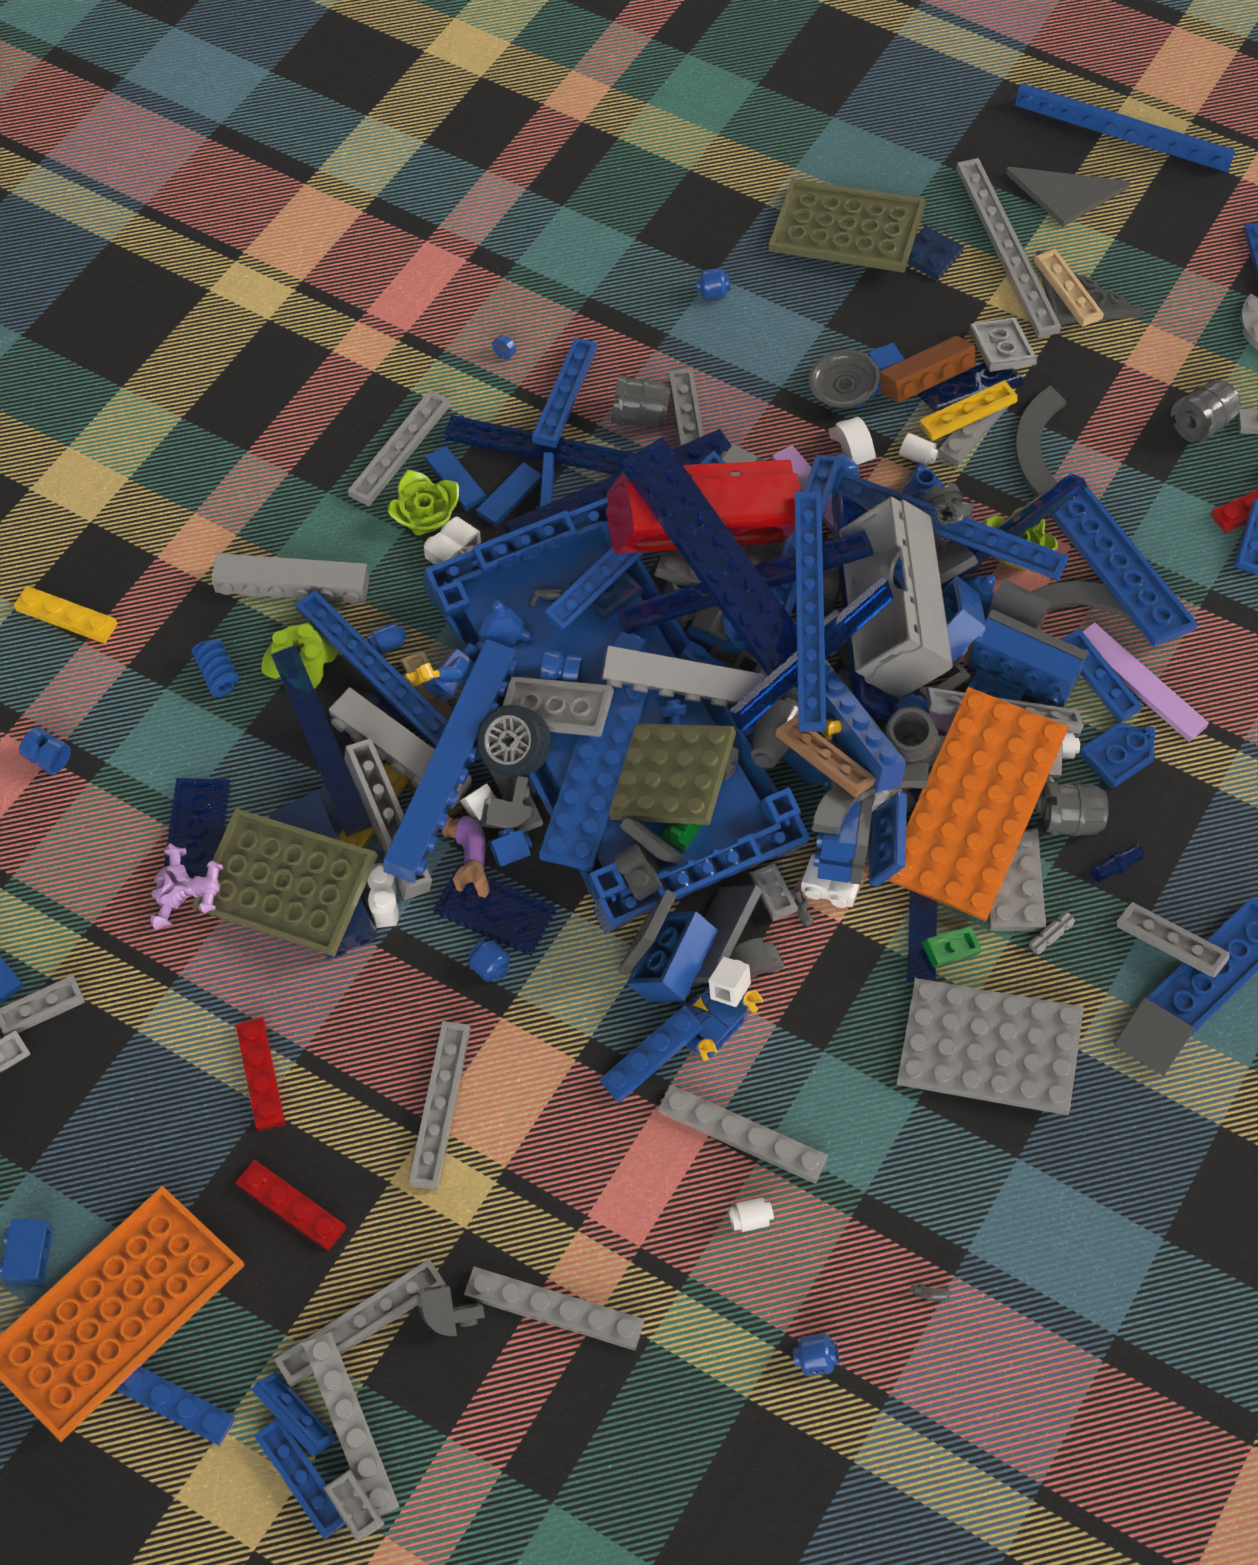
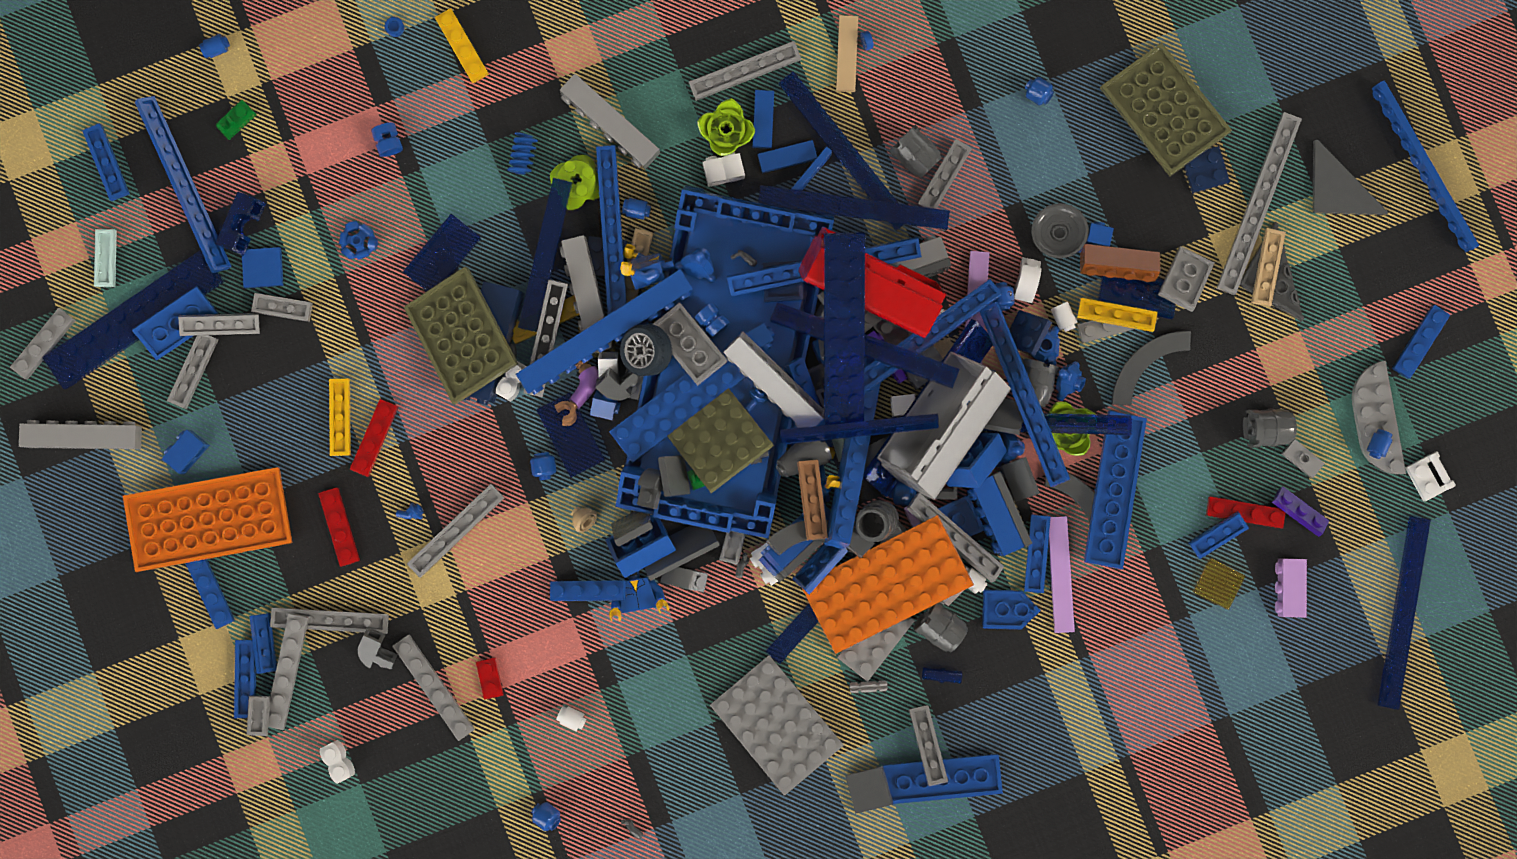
camera: 35 degrees right, 25 degrees up
(82, 877) = (357, 240): none -> blue piece
(176, 886) = (402, 289): lavender piece -> none
(200, 1078) = (339, 417): none -> yellow plate
(373, 1119) = (413, 511): none -> blue plate
(493, 372) = (847, 53): none -> tan tile
(493, 1486) = (338, 764): none -> white brick
(564, 393) = (876, 107): blue plate -> none
(582, 983) = (583, 518): none -> tan brick
(614, 1246) = (489, 678): none -> red plate
(729, 981) = (656, 587): white brick -> none
(743, 1134) = (604, 669): light grey plate -> none
(810, 613) = (874, 405): blue plate -> none
(900, 475) = (1029, 331): none -> dark blue plate
(952, 946) = (803, 654): green plate -> none
(958, 506) = (1032, 392): dark grey connector -> none
(981, 495) = (1069, 381): none -> blue rock

